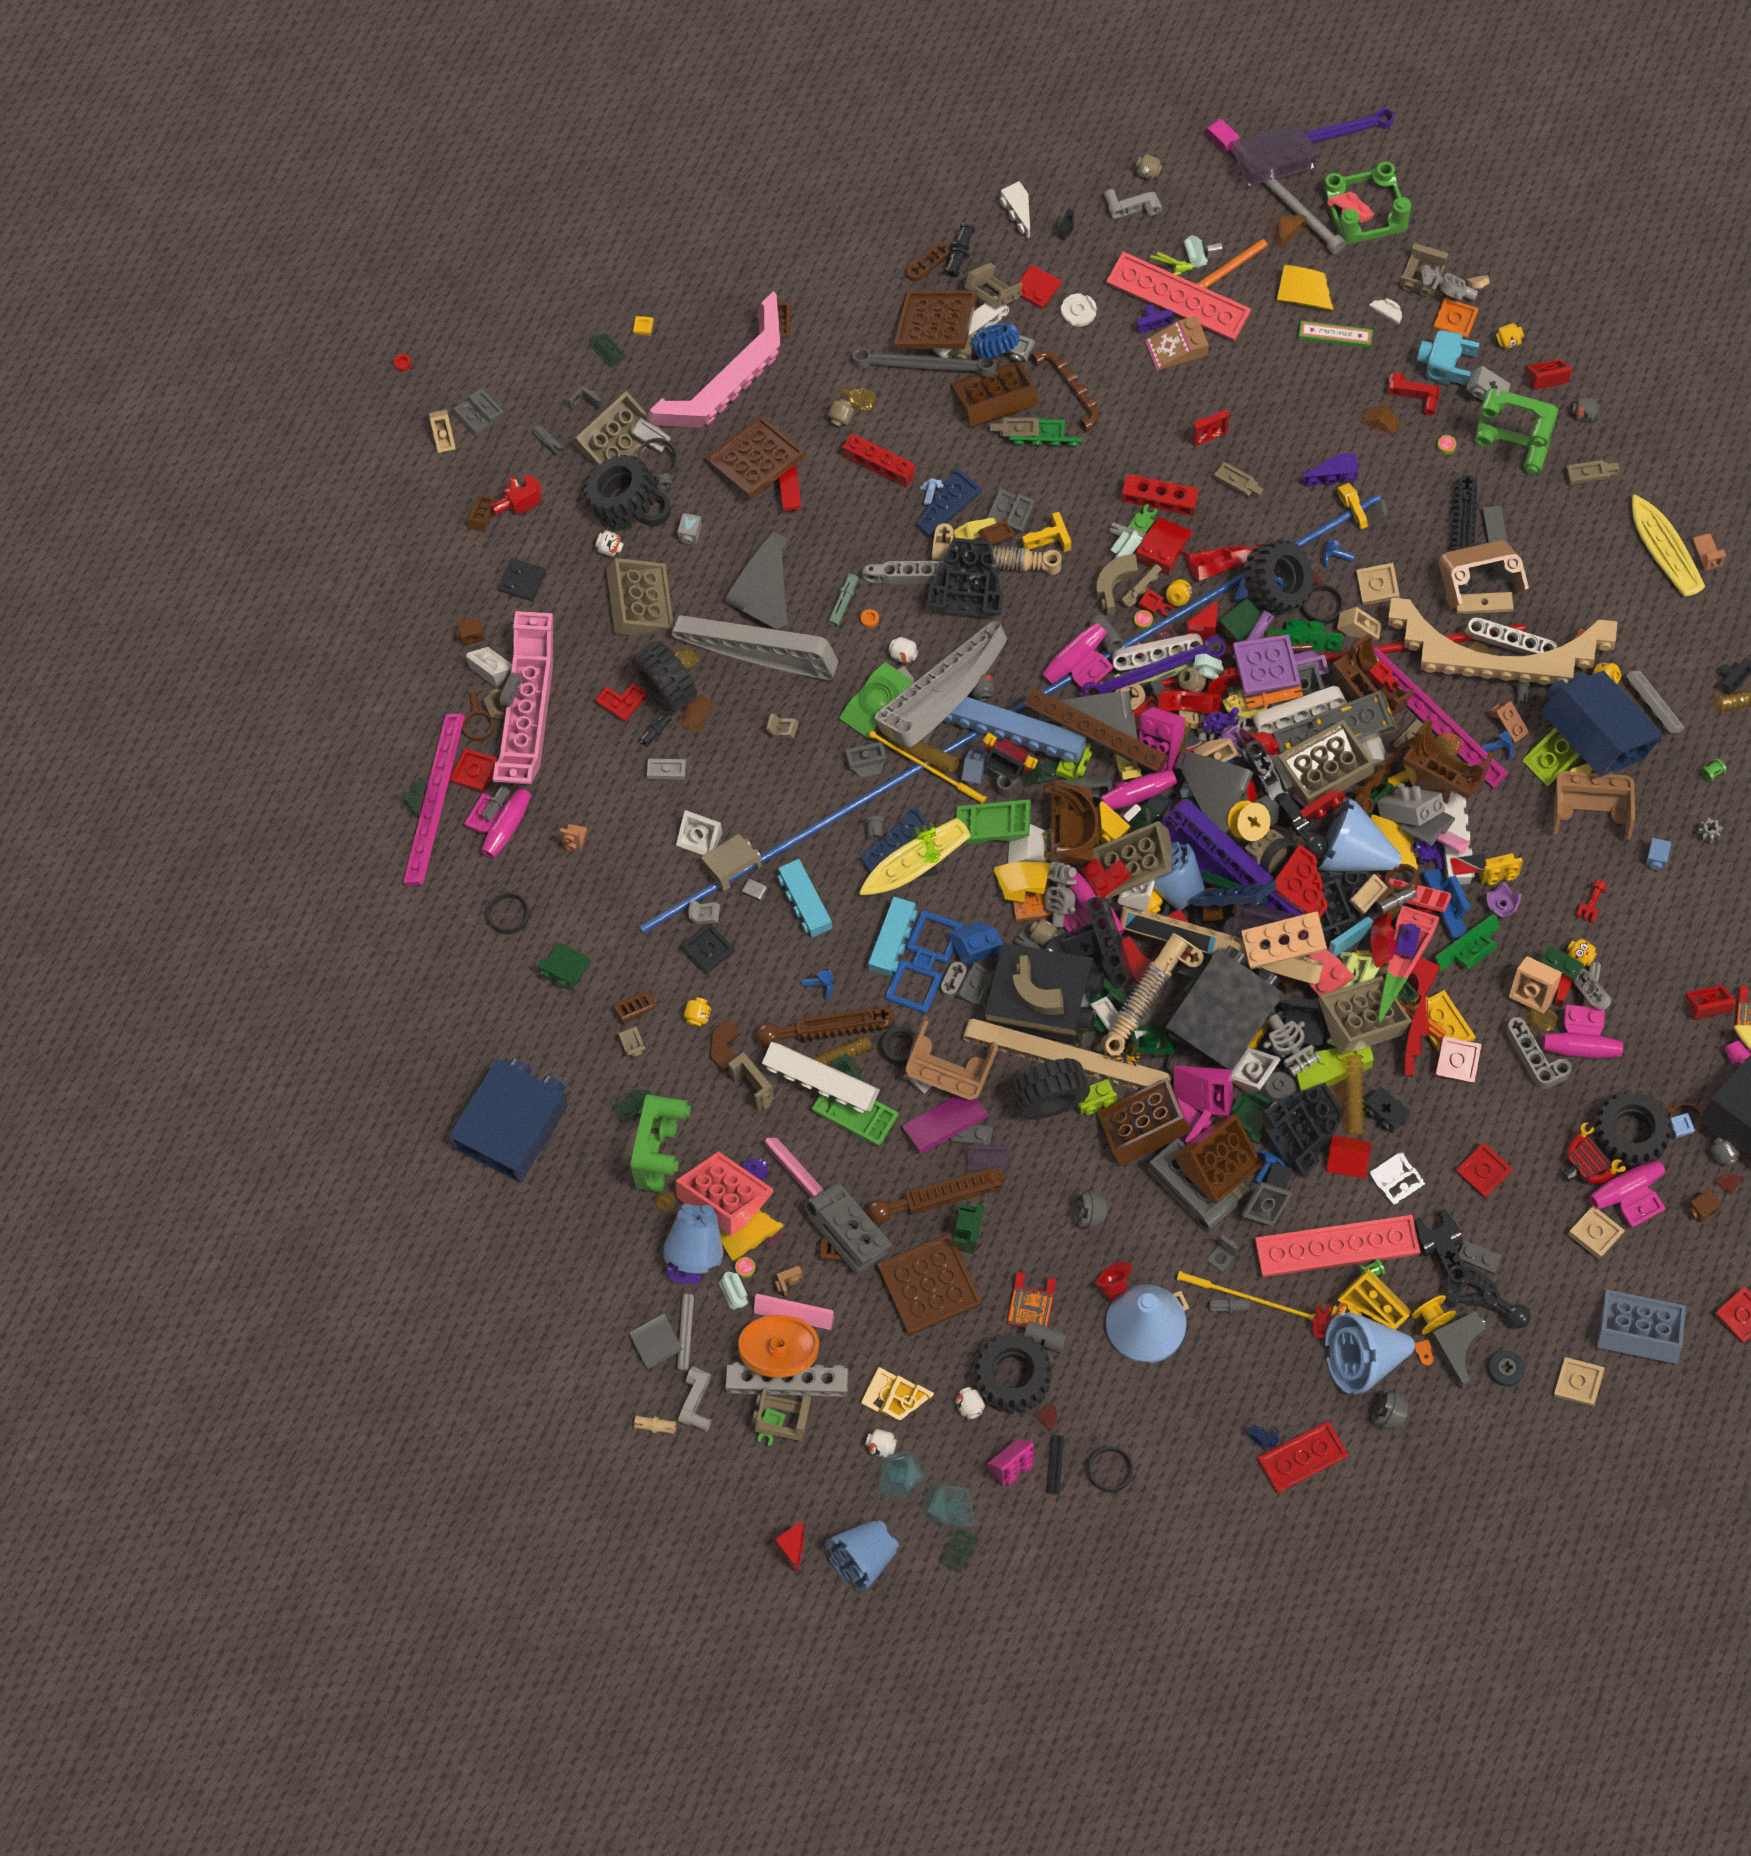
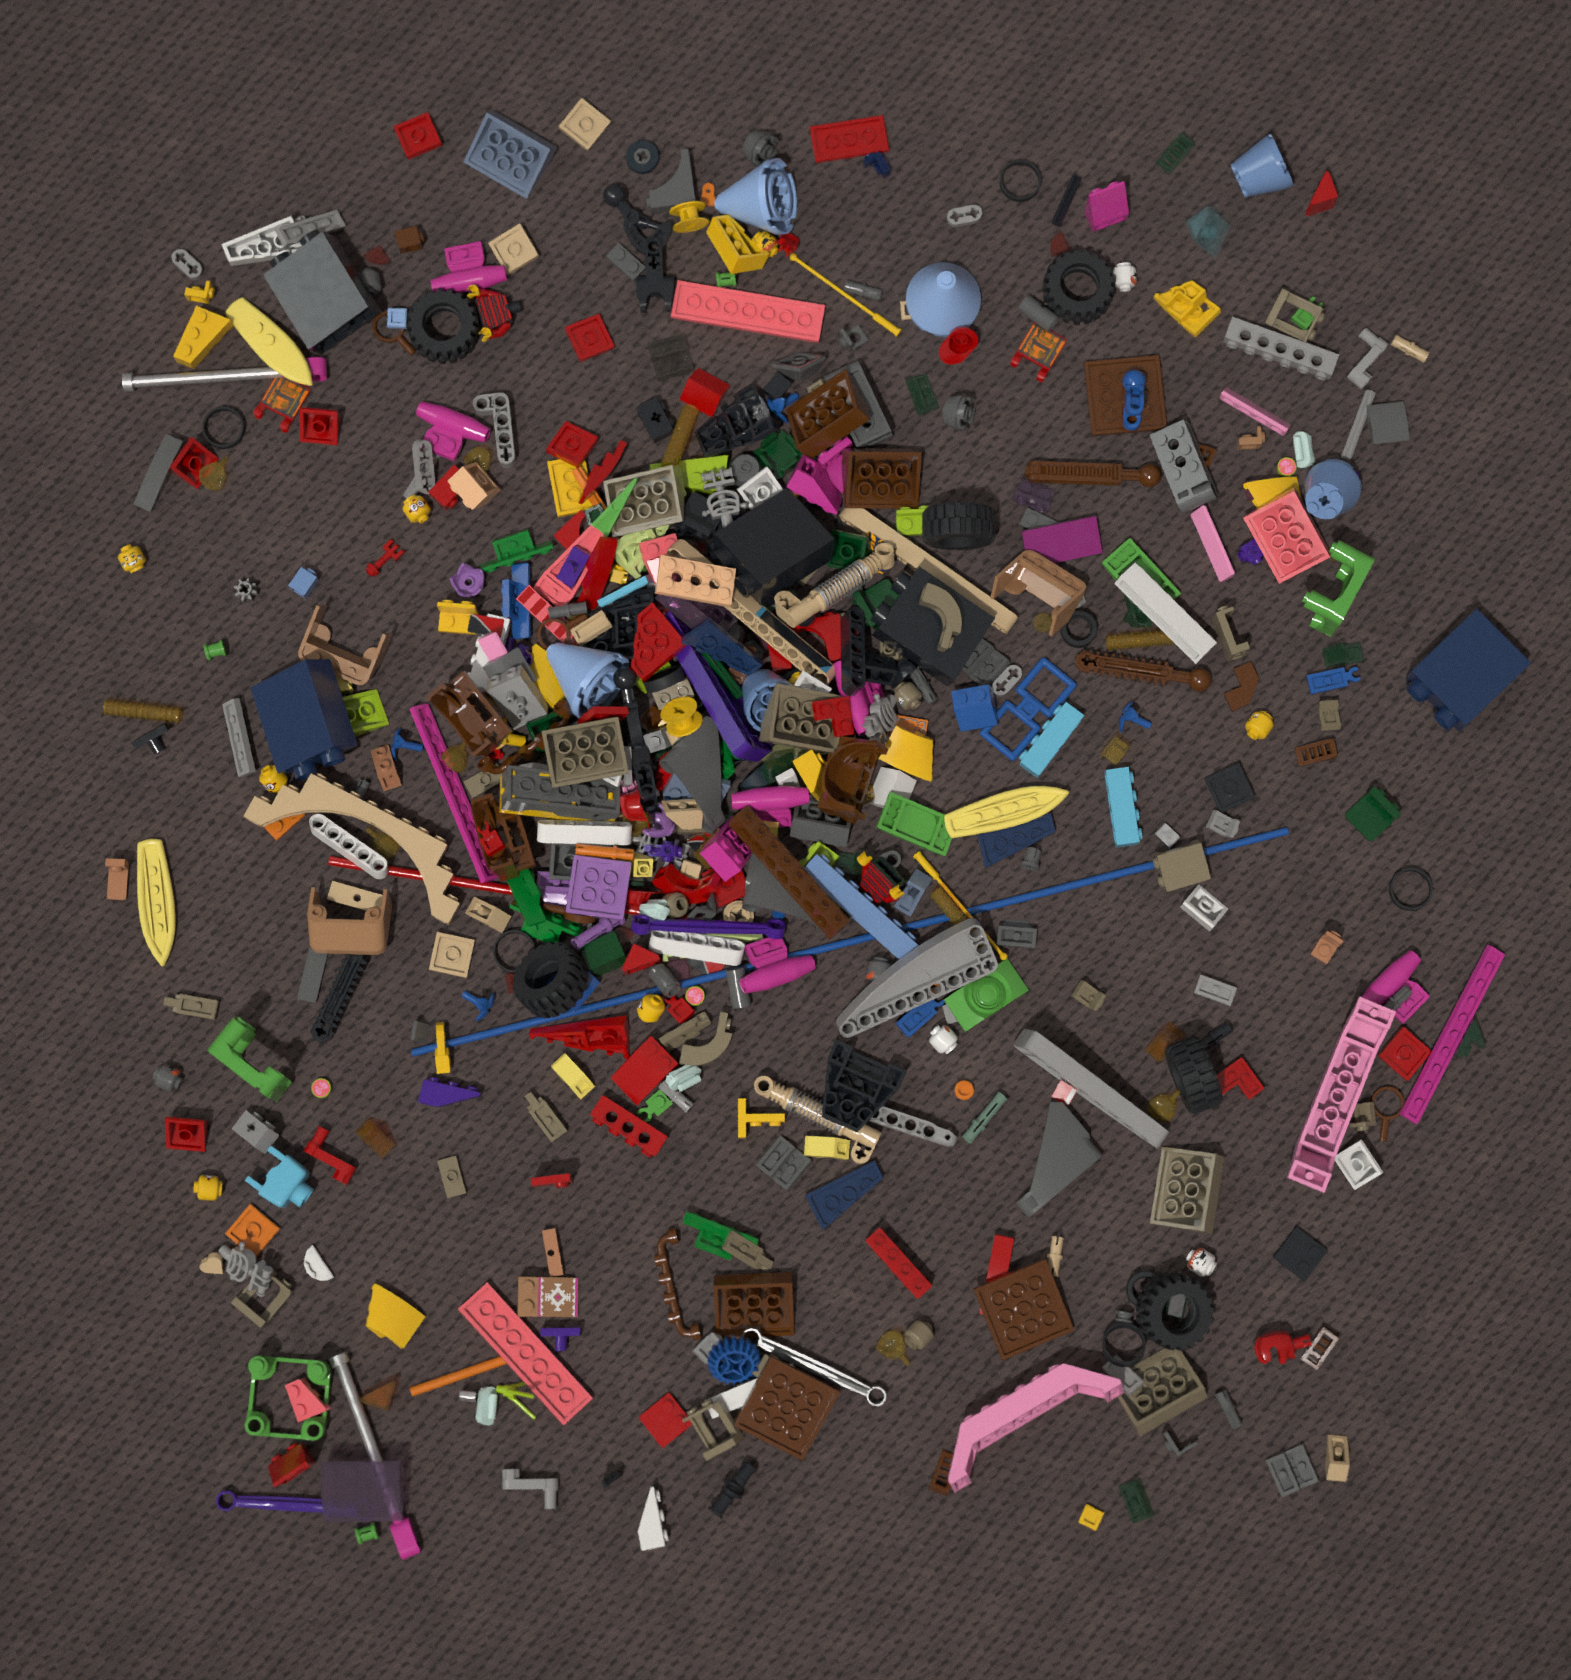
camera: 165 degrees left, 15 degrees up
(402, 362) = (1356, 1560): red tile -> none
(470, 631) = (1369, 1208): reddish brown brick -> none
(510, 689) = (1349, 1114): dark grey beam -> none
(640, 1076) = (1330, 680): none -> blue plate
(689, 528) = (1114, 1251): light grey brick -> none
(741, 511) = (1055, 1255): none -> tan pin
(778, 1346) = (1280, 376): orange dish -> none
(828, 945) = (1115, 750): none -> clear yellow panel
(881, 1443) = (1214, 266): white head -> none
(924, 1289) = (1134, 384): none -> blue piece
(930, 255) = (766, 1498): reddish brown beam -> none
(931, 484) = (852, 1220): light blue piece -> none
(933, 855) = (989, 801): clear neon green hinge -> none
(935, 655) = (917, 1017): none -> blue plate
(939, 1043) = (1042, 622): none -> clear yellow tile
(952, 1506) = (1170, 188): clear light blue slope -> none
(968, 1227) = (1074, 429): dark green panel -> none
(996, 532) = (809, 1133): reddish brown tile -> none
(1078, 315) = (639, 1379): white tile -> none
(1106, 1012) = (876, 591): white tile -> none
(1132, 1223) = (922, 394): none -> clear green slope
(1148, 167) = (497, 1525): dark tan head -> none
(1157, 1419) = (963, 211): none -> light grey beam
(1174, 618) = (664, 980): none -> dark grey head
(1182, 373) = (551, 1243): none -> nougat piece
(1230, 519) = (572, 1076): none -> light yellow slope
(1257, 128) = (366, 1533): none -> bright green bush
(1300, 411) = (451, 1177): none -> dark tan plate
(1326, 639) = (527, 897): none -> green bracket
(1335, 334) = (381, 1255): tile -> none
(1342, 149) = (290, 1465): none -> red slope
(1558, 960) = (441, 498): dark green plate -> none

